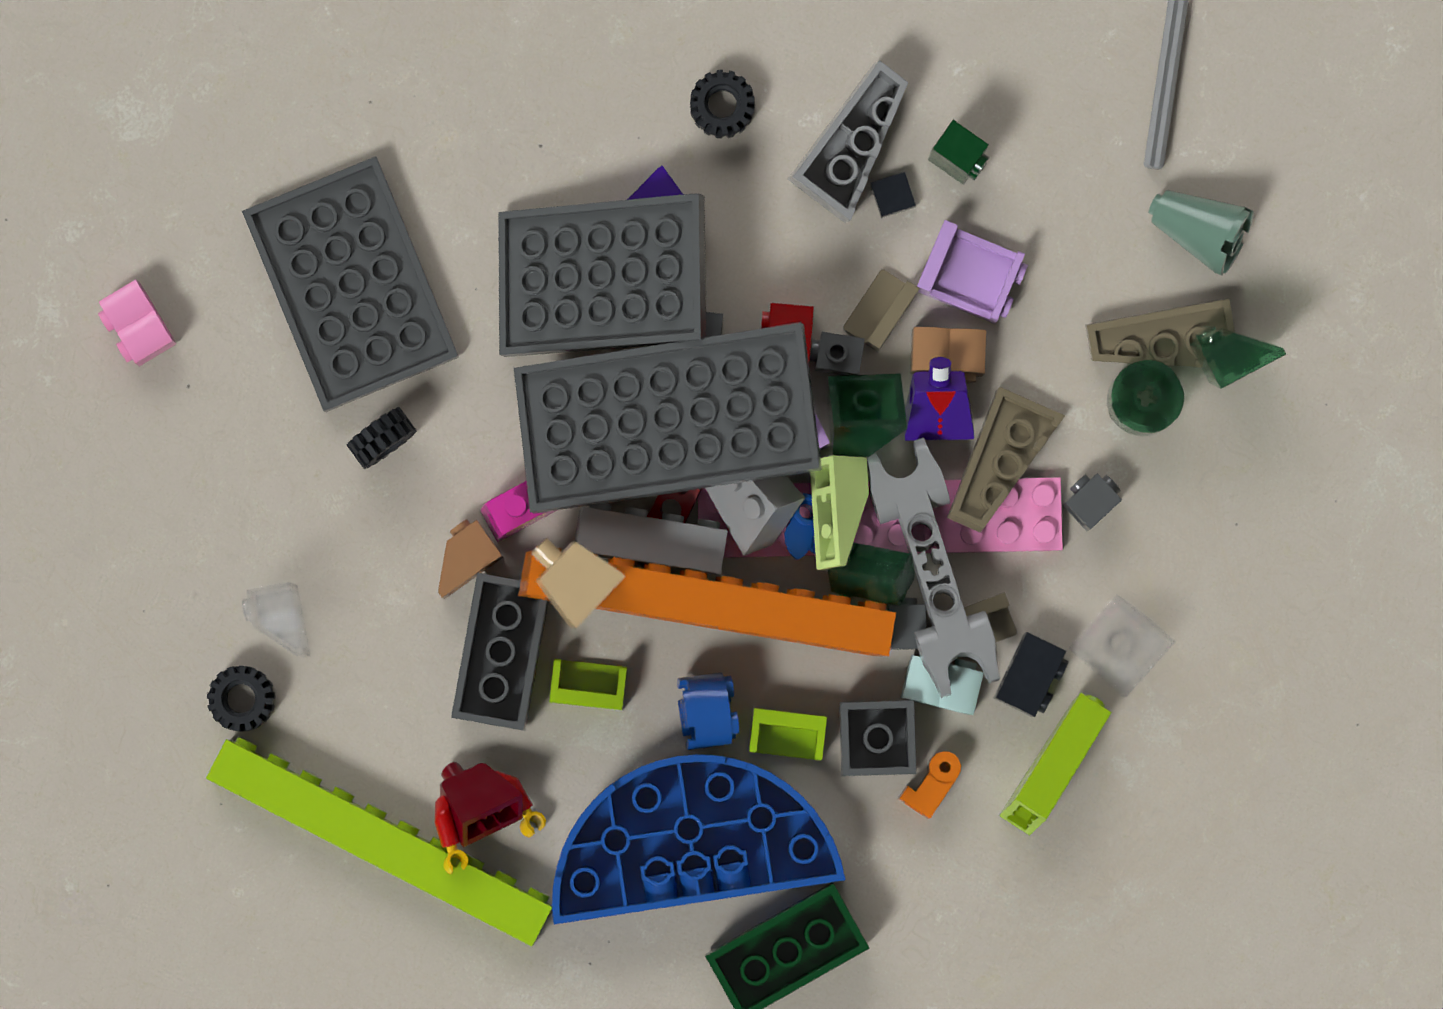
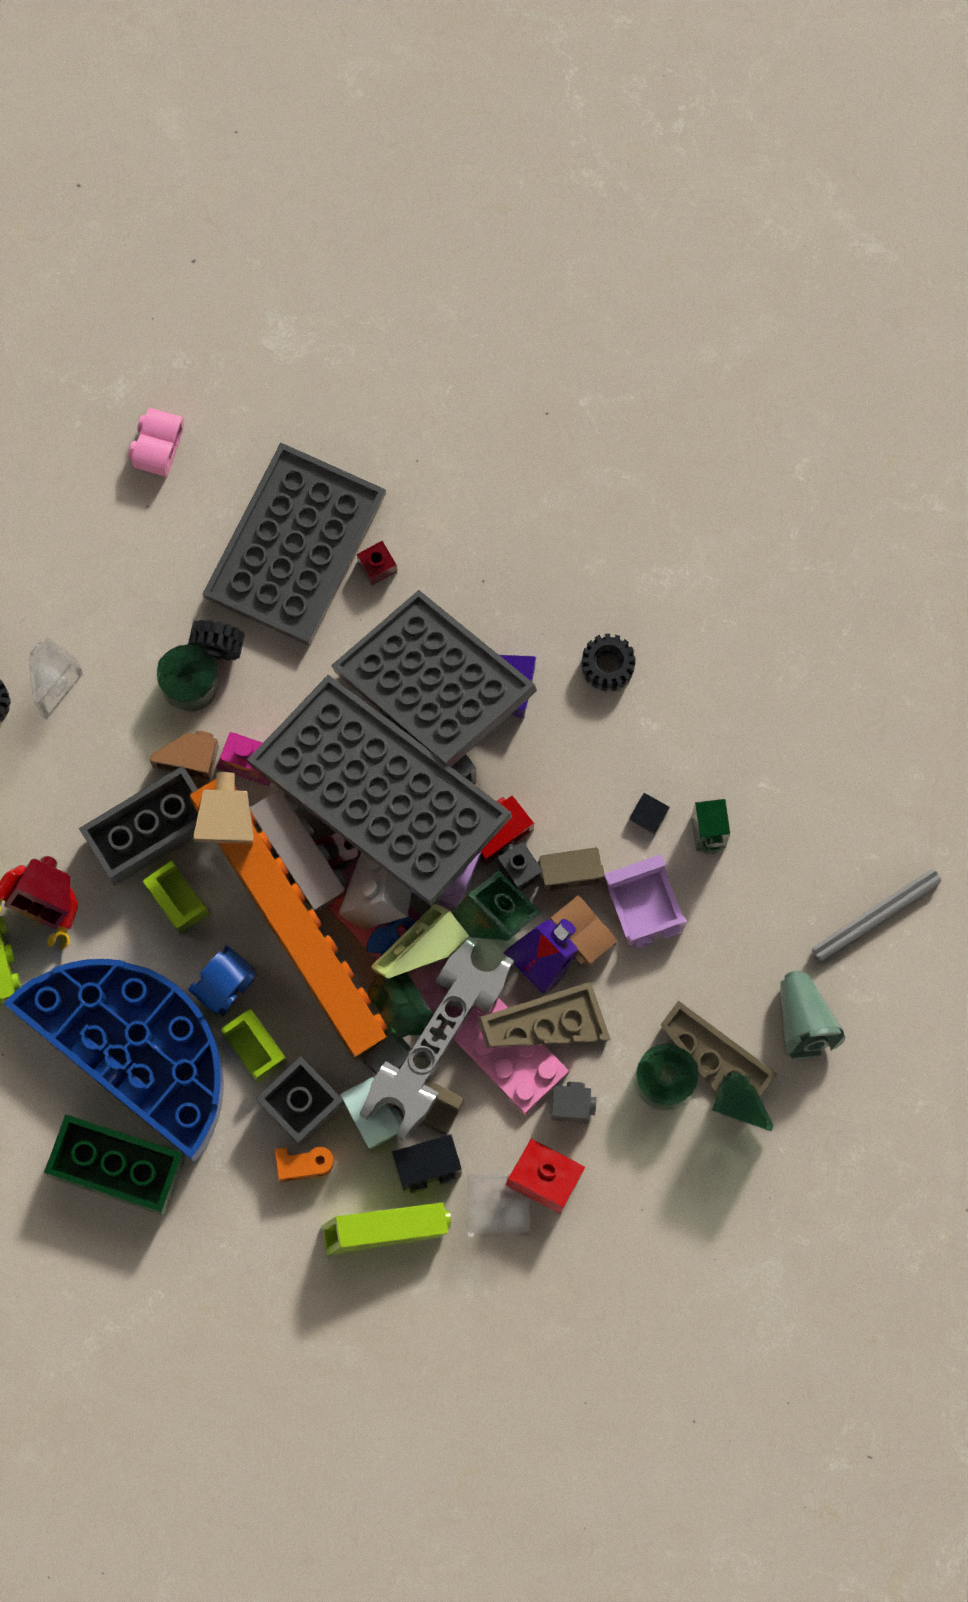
camera: 50 degrees right, 10 degrees down
(383, 475) = (190, 661): none -> clear green brick
(446, 236) = (377, 571): none -> dark red plate
(847, 148) = (651, 757): light grey wedge -> none
(1136, 582) = (545, 1176): none -> red plate

